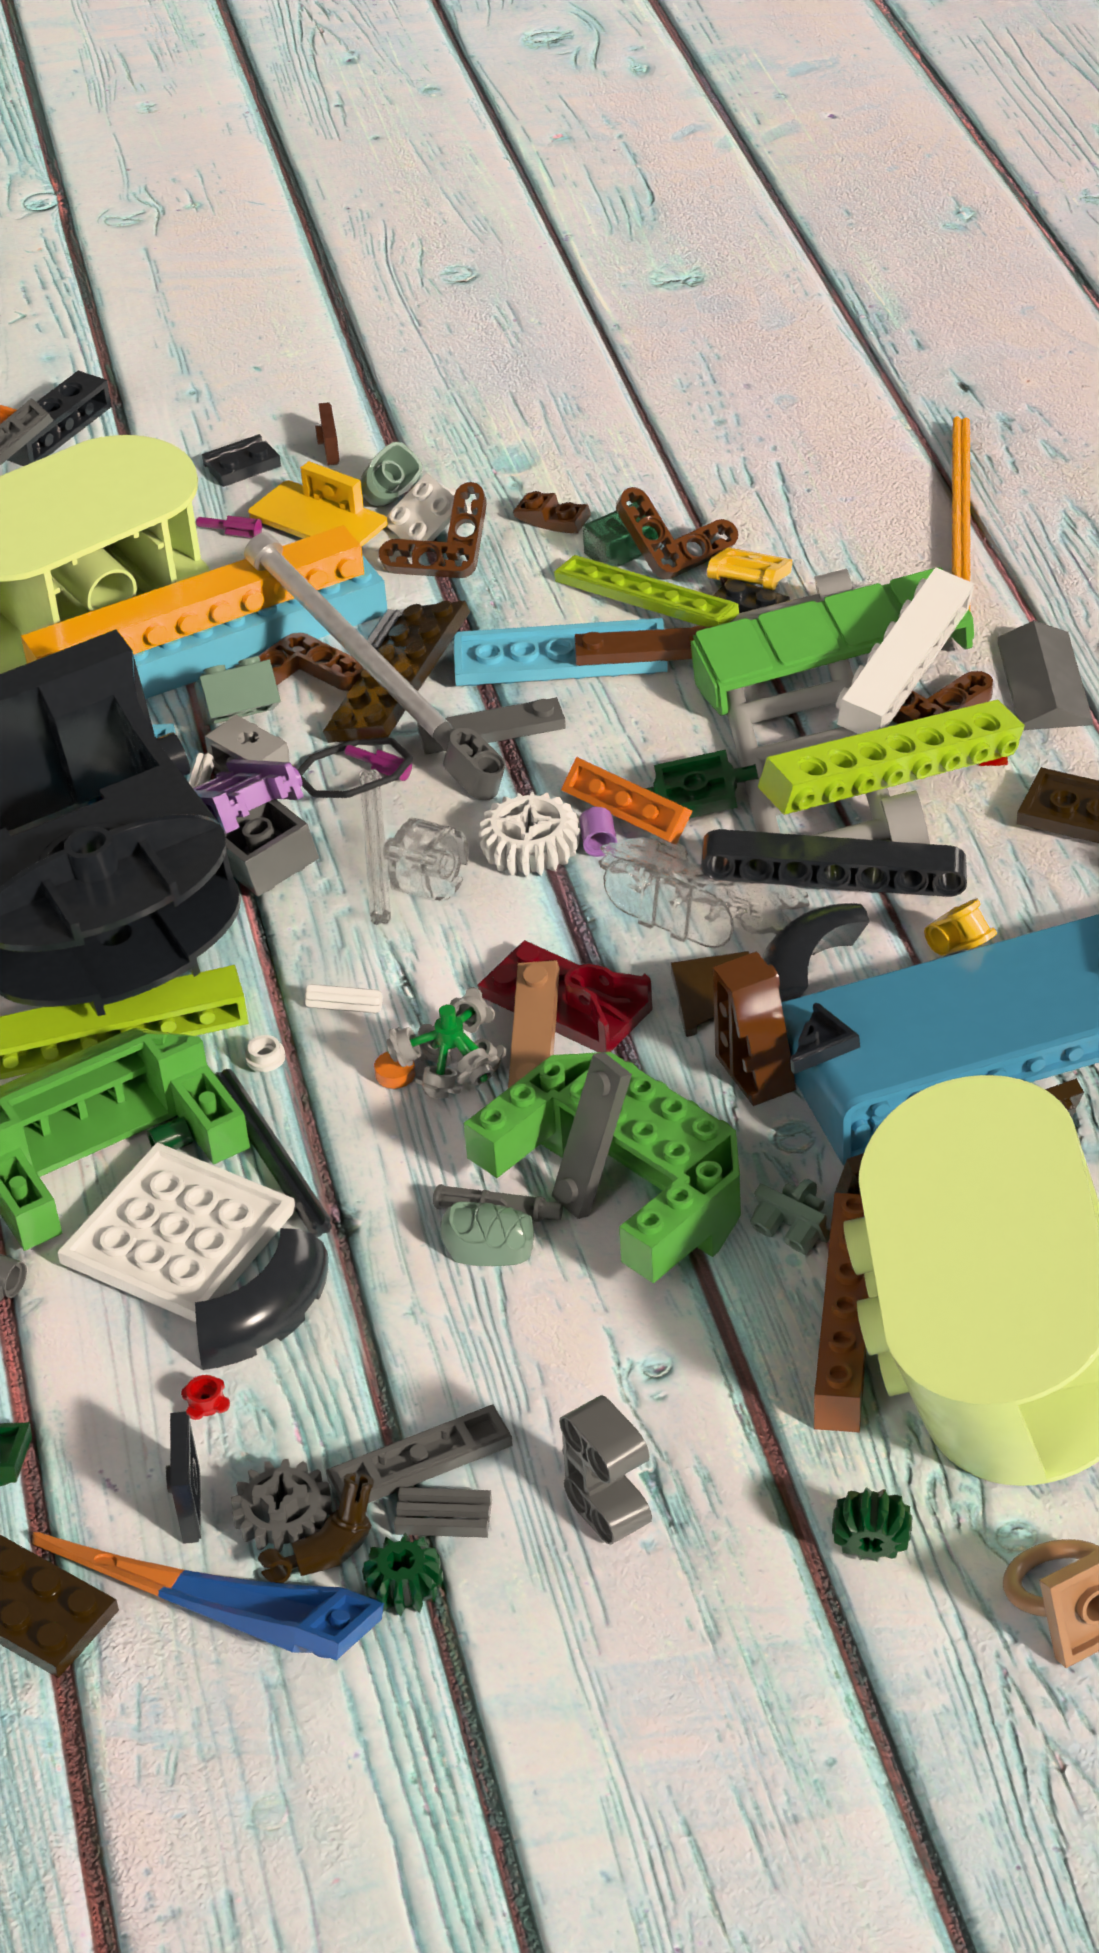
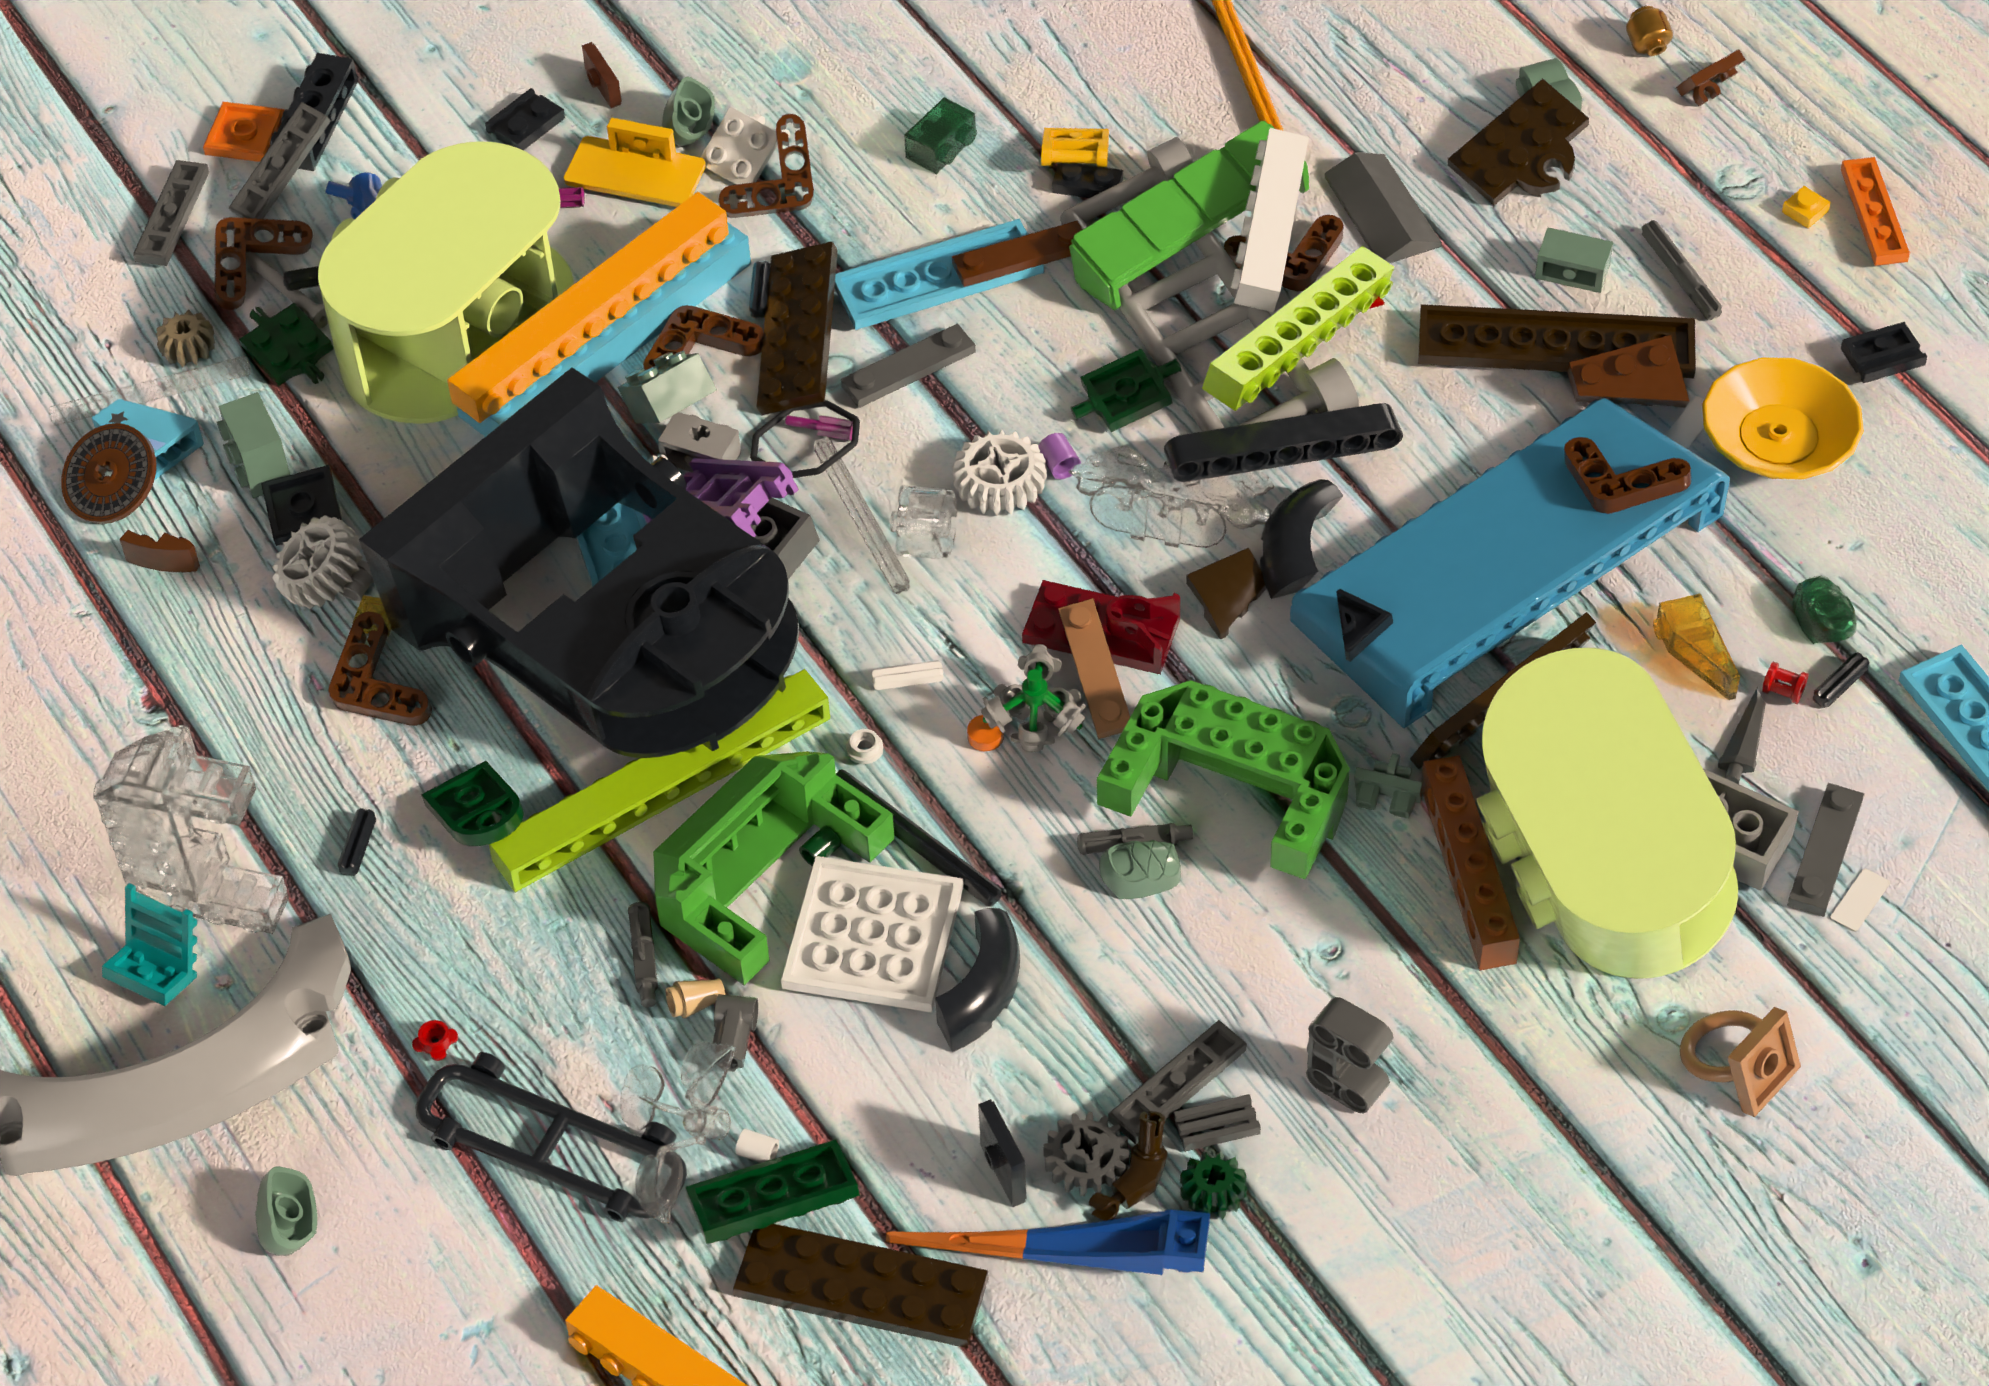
camera: 20 degrees left, 10 degrees up
(205, 1396) = (971, 1067): red plate -> none
(467, 754) = (907, 403): flat silver piece -> none
(546, 513) = (850, 122): reddish brown slope -> none
(591, 1135) = (1209, 762): dark grey plate -> none
(626, 800) = (1073, 419): orange plate -> none
(646, 592) = (990, 193): lime tile -> none
(673, 549) = (996, 141): reddish brown beam -> none
(752, 1028) = (1291, 626): reddish brown wedge -> none
(872, 1524) = (1569, 1042): dark green gear -> none
(959, 929) = (1419, 484): yellow piece -> none

